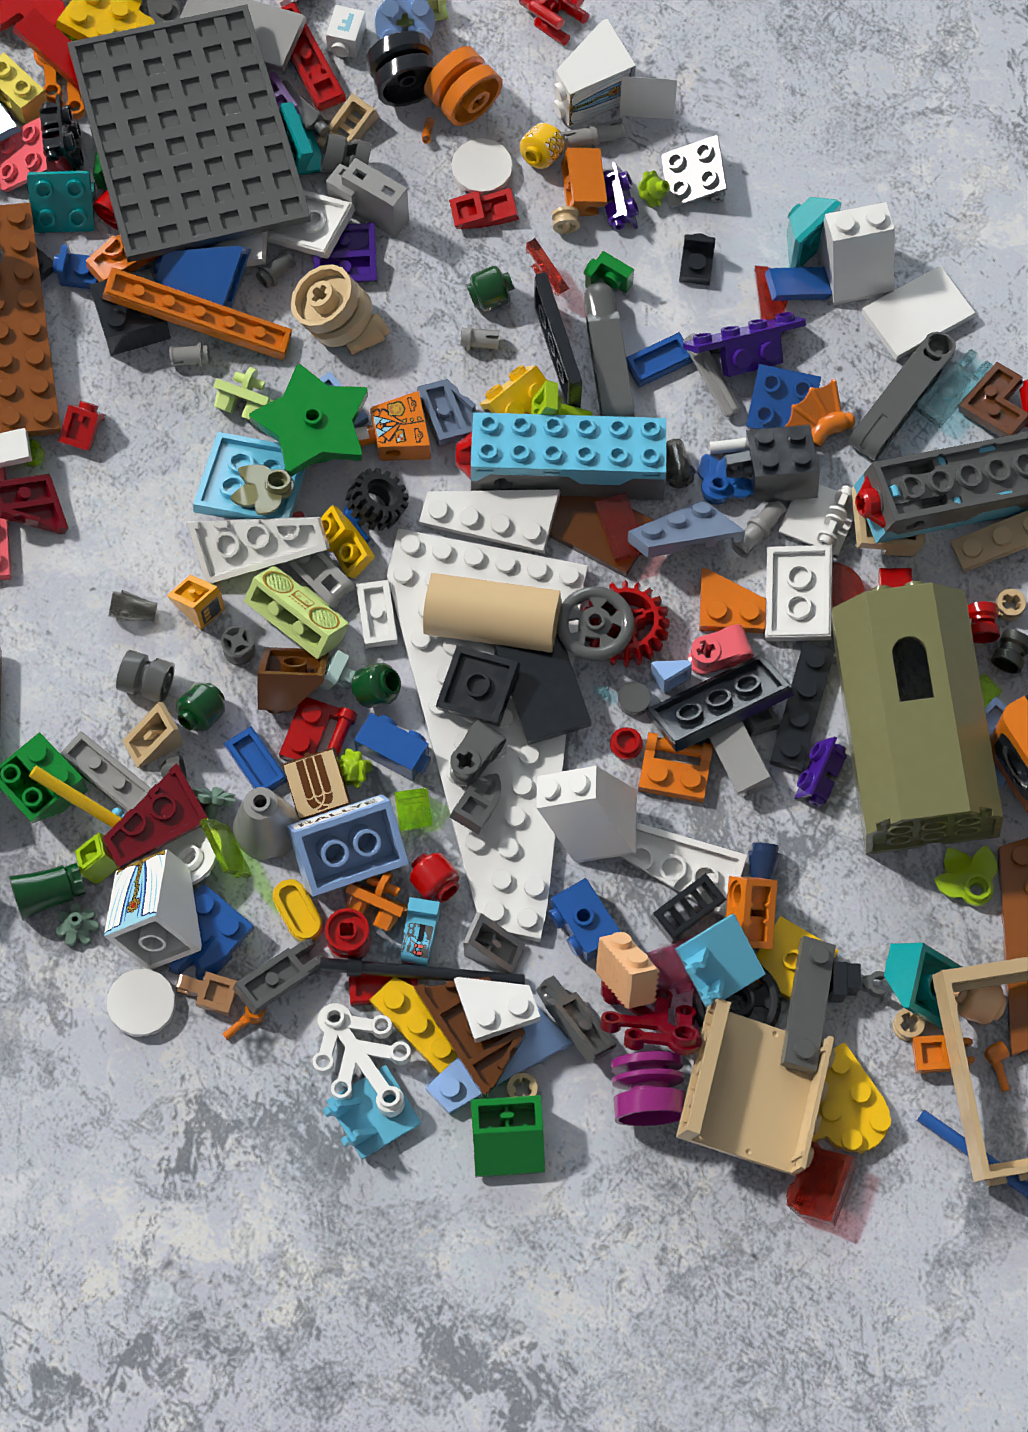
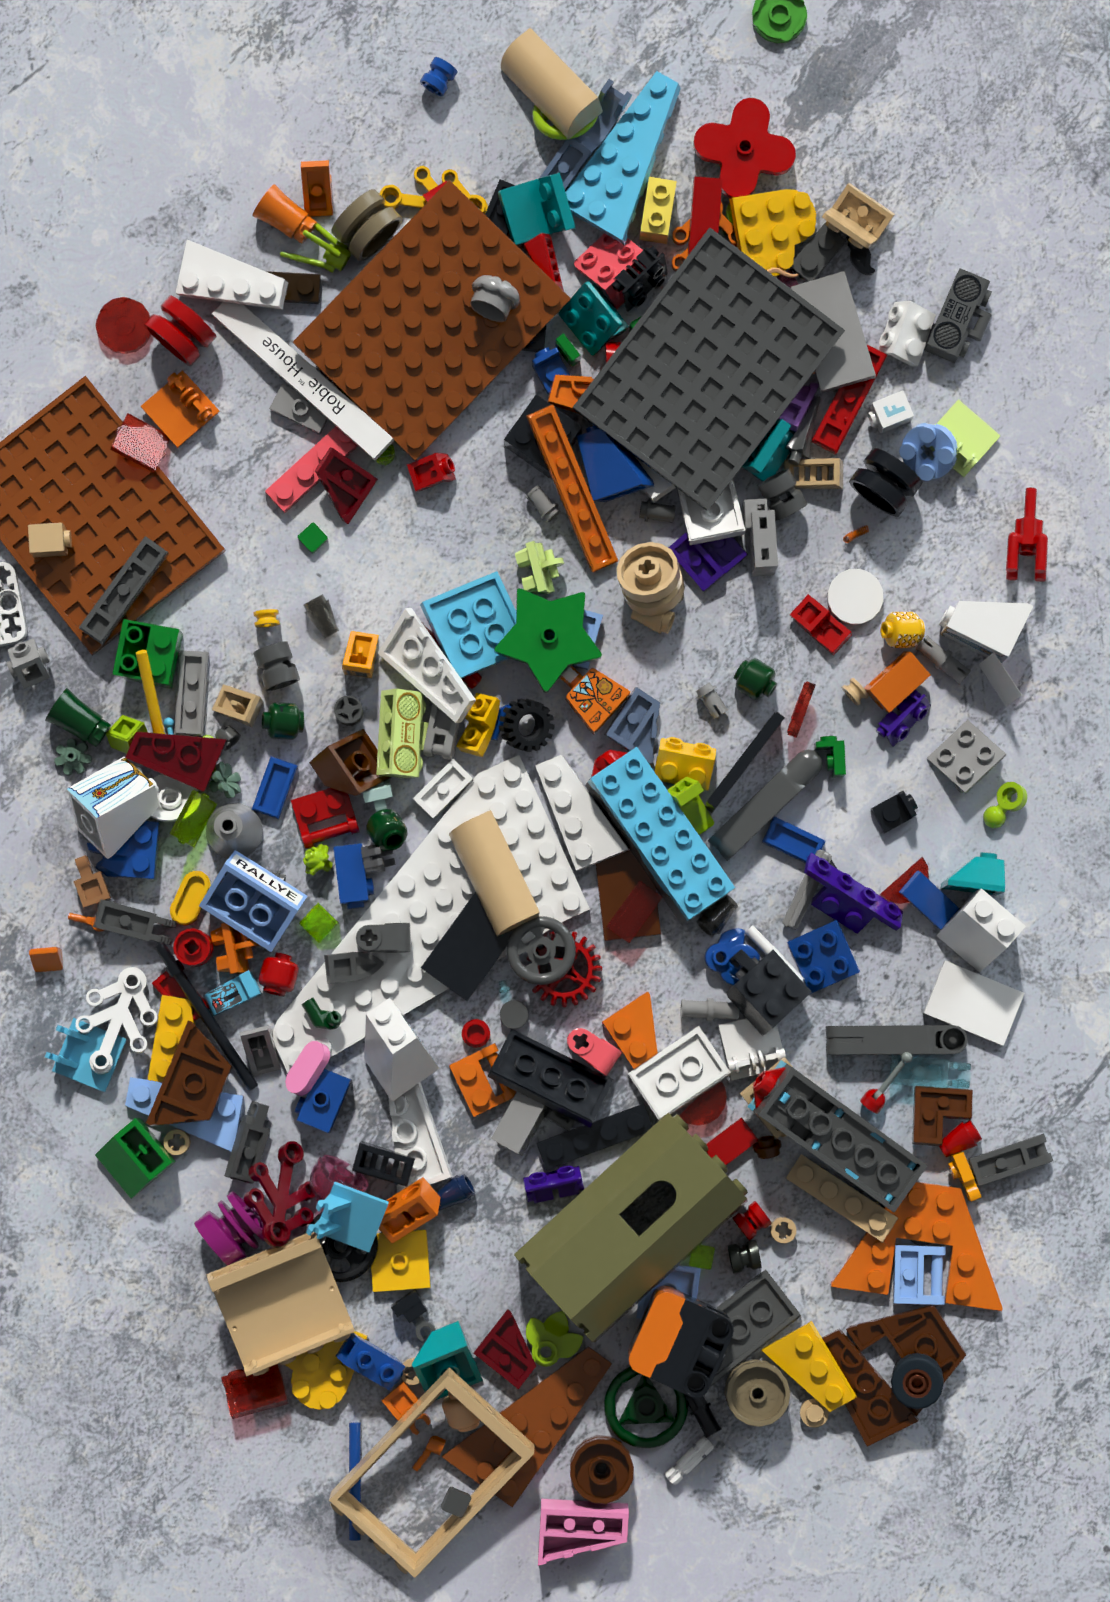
camera: 50 degrees right, 15 degrees up
(54, 569) = (312, 537): none -> green piece
(75, 238) = (567, 350): none -> green tile
(94, 656) = (266, 618): none -> yellow bush
(141, 1002) = (50, 842): white tile -> none
(249, 1085) = (46, 959): none -> orange slope
(262, 488) = (465, 640): olive plate -> none
(316, 783) = (287, 843): piece -> none
(395, 711) = (377, 864): none -> flat silver piece
(463, 86) = (904, 537): orange wheel -> none
(478, 685) = (434, 903): black plate -> none
(496, 1006) = (211, 1087): white wing -> none
(507, 864) = (321, 1018): none -> dark green arm
(545, 908) = (307, 1068): none -> bright pink tile
(626, 970) = (302, 1156): light nougat brick -> none
(653, 188) = (929, 736): lime plant -> none
(671, 673) = (548, 1028): light blue slope -> none
(688, 526) = (668, 962): sand blue wing -> none
(764, 186) = (995, 815): none -> lime plate
(808, 1005) = (370, 1295): dark grey plate -> none
(822, 412) = (830, 991): orange arm -> none
(872, 1050) = (371, 1361): none -> blue brick
(923, 564) = (767, 1147): none -> reddish brown plate
(943, 440) = (874, 1098): none -> hinge
(951, 923) = (507, 1351): none -> dark red wing

